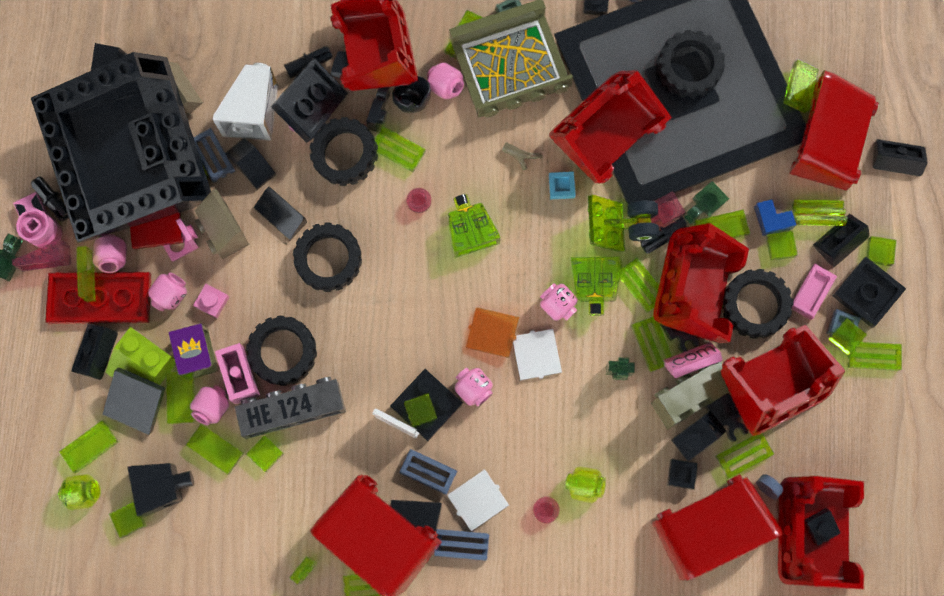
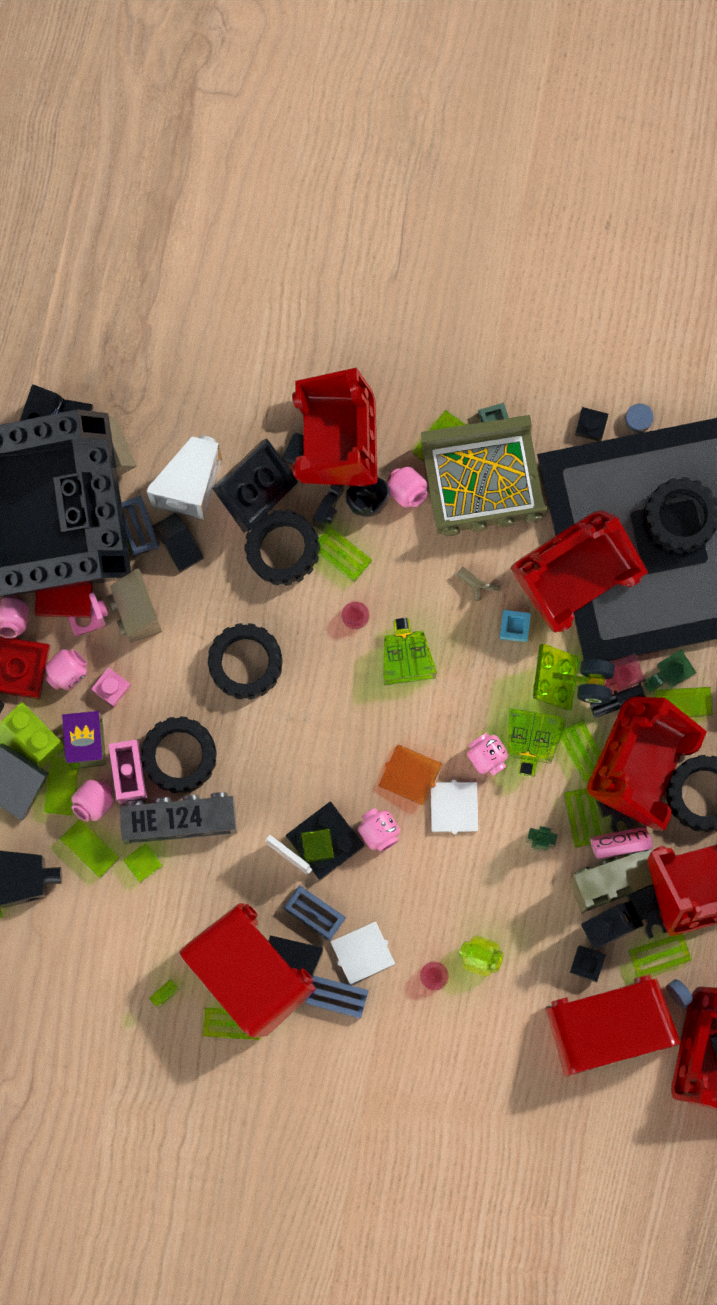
camera: 10 degrees right, 0 degrees up
(280, 213) = (201, 604): black slope -> none
(321, 55) = (249, 441): black axle -> none

